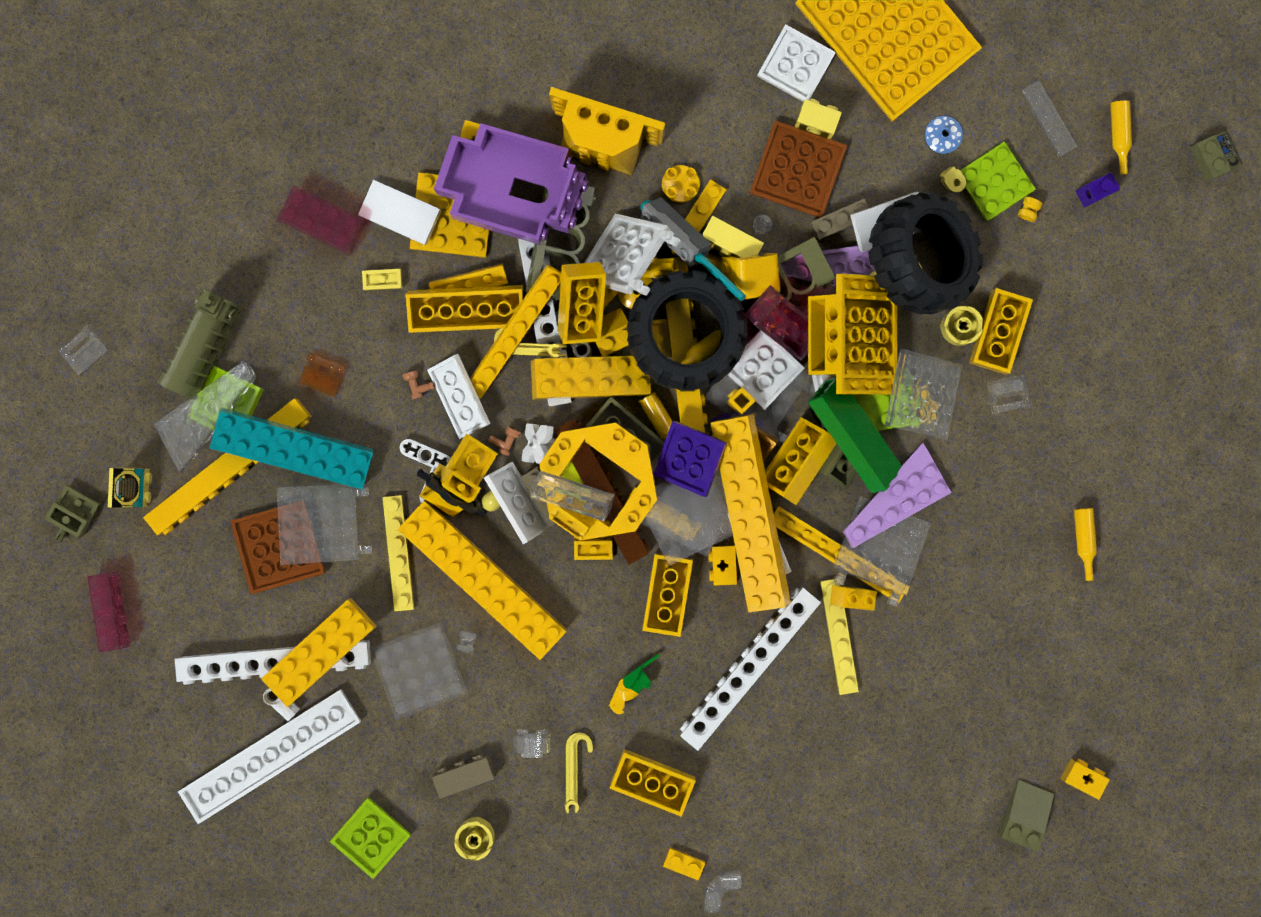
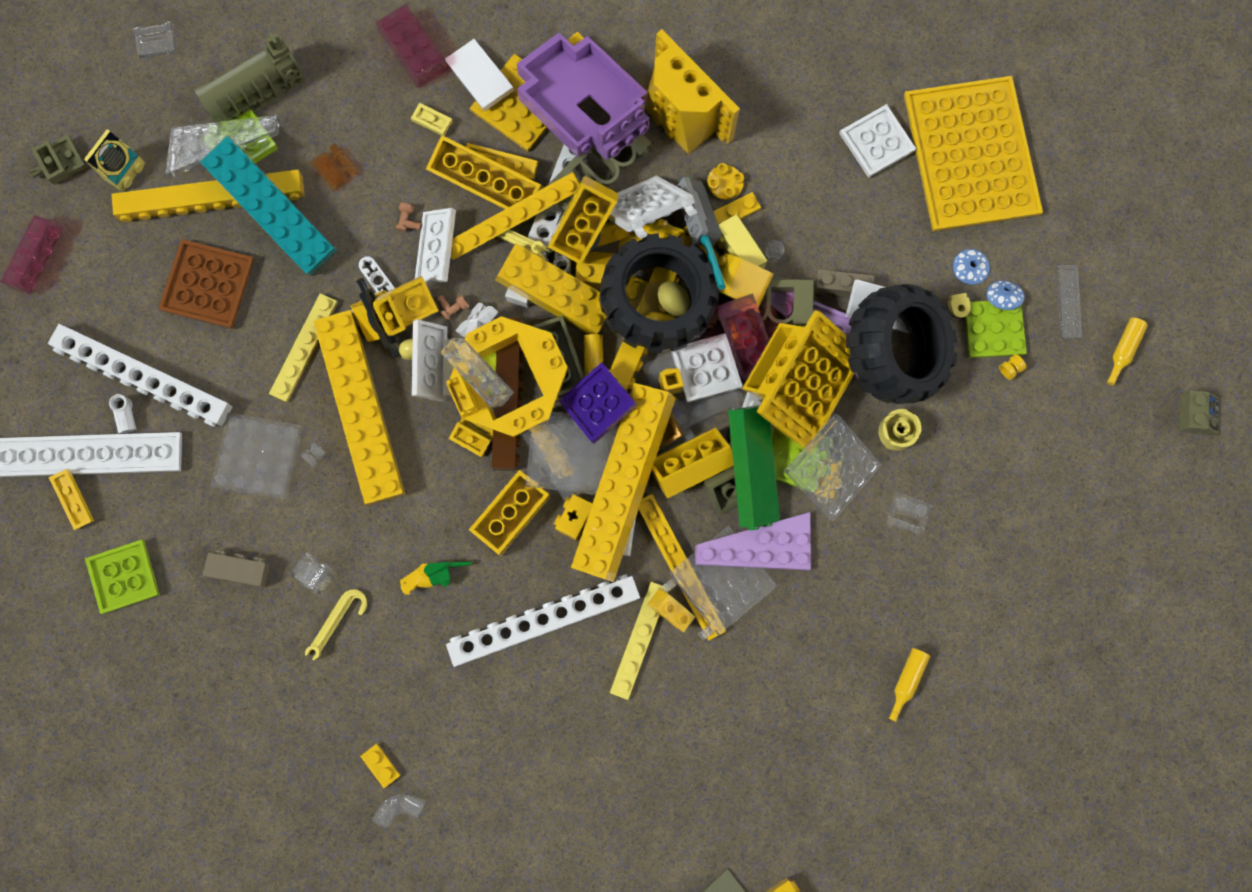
camera: 30 degrees right, 10 degrees down
(285, 799) = (71, 499): none -> yellow plate
(319, 524) = (252, 283): clear plate -> none
(319, 652) = (180, 386): yellow brick -> none
(474, 849) = (202, 621): light yellow brick -> none
(652, 782) = (396, 672): yellow brick -> none
(699, 324) = (673, 299): none -> light yellow dish
(798, 169) = (831, 224): dark orange plate -> none
(818, 118) = (870, 191): light yellow brick -> none
(989, 152) = (1005, 295): none -> medium blue dish
(1001, 332) = (931, 454): yellow brick -> none
(1098, 189) = (1084, 382): dark purple torso -> none

